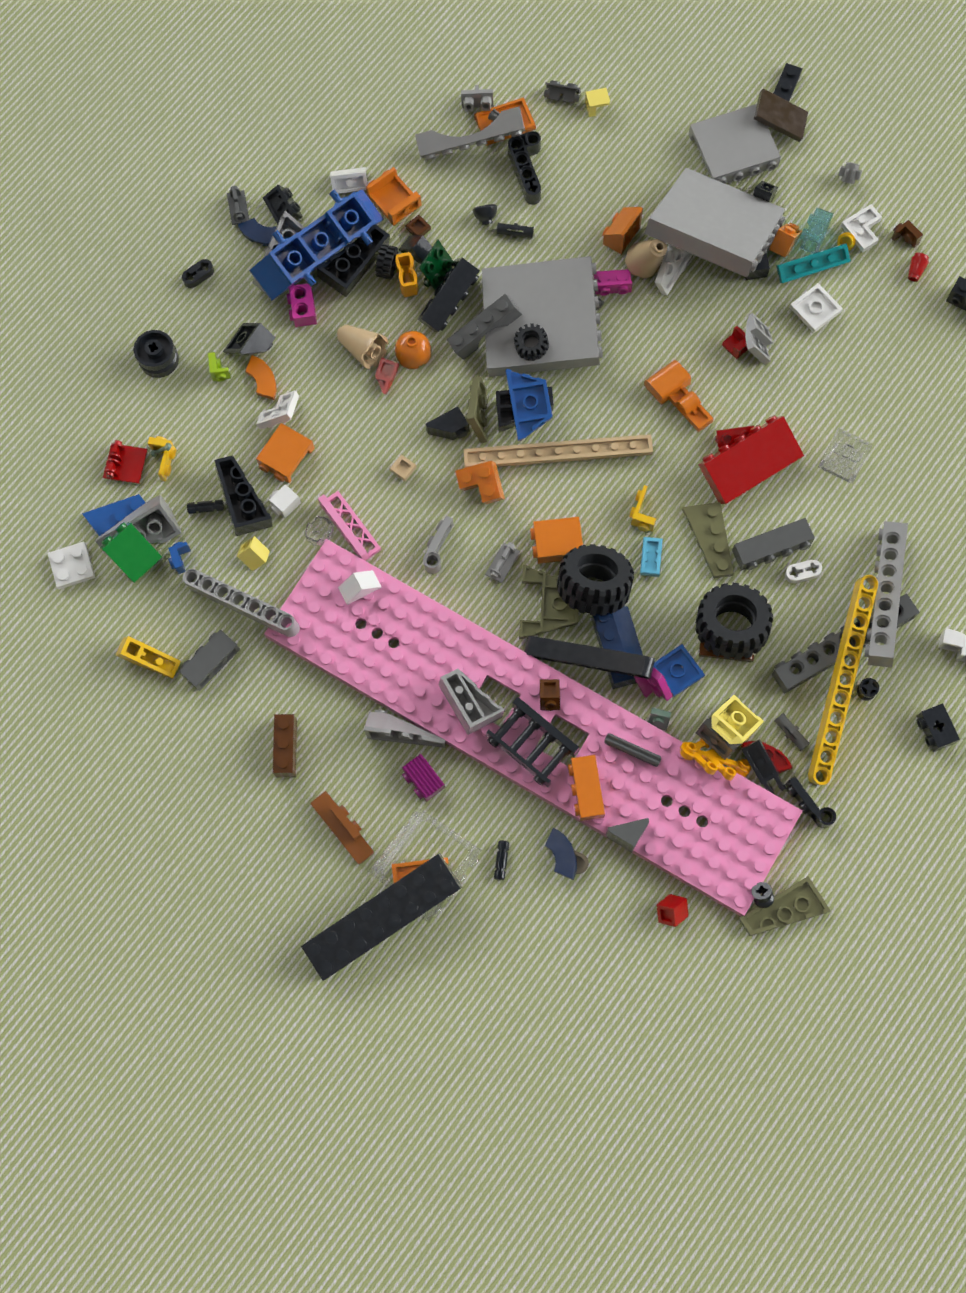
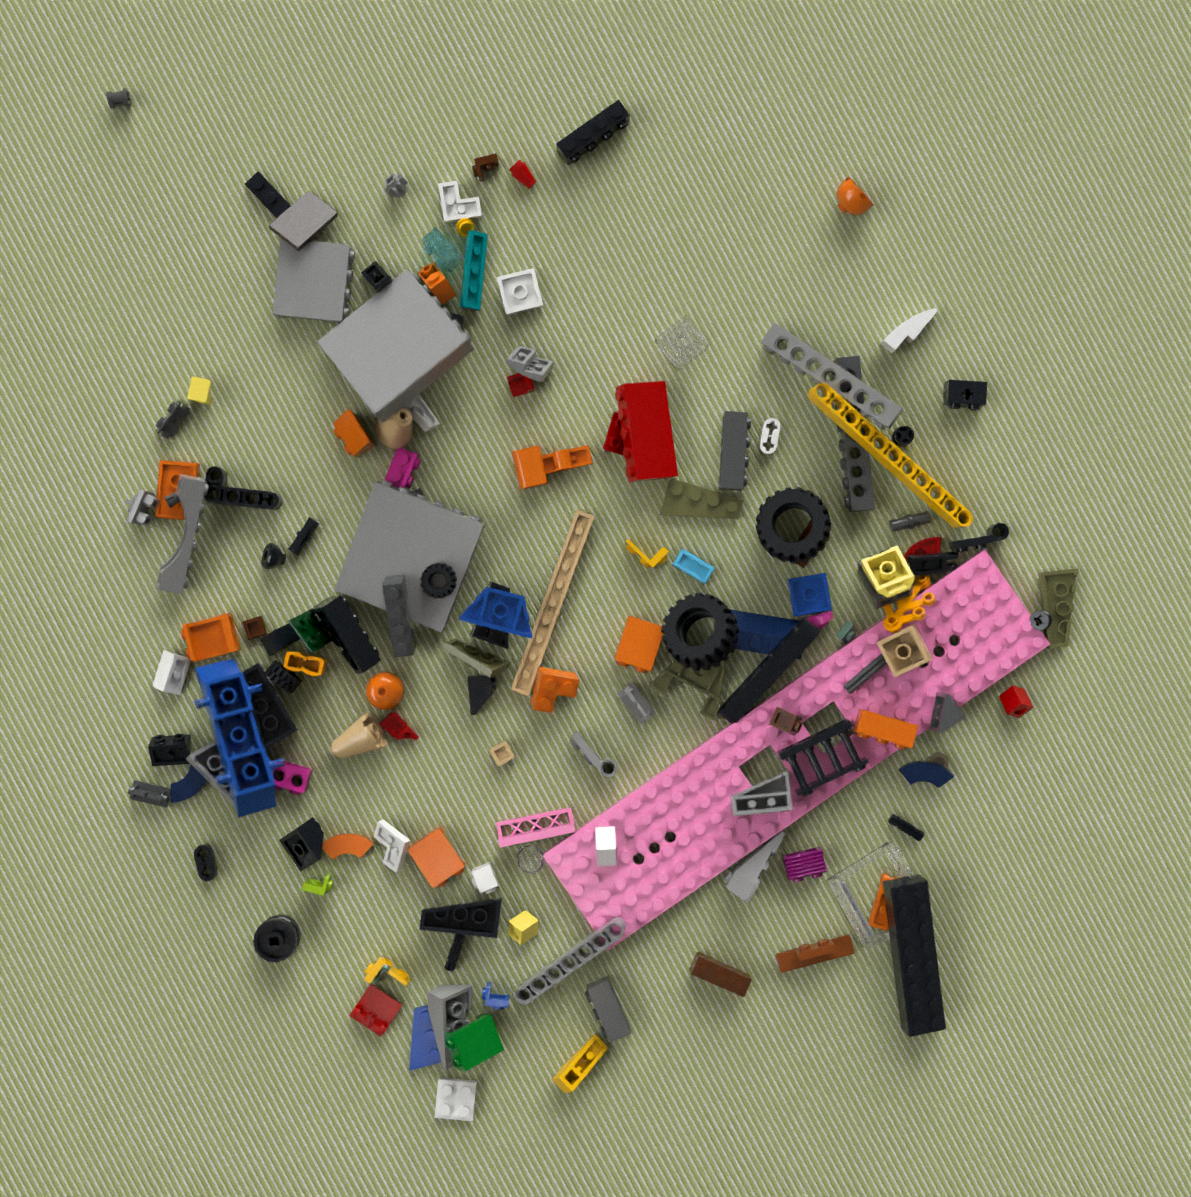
camera: 70 degrees left, 15 degrees up
(670, 771) = (904, 650): none -> tan slope

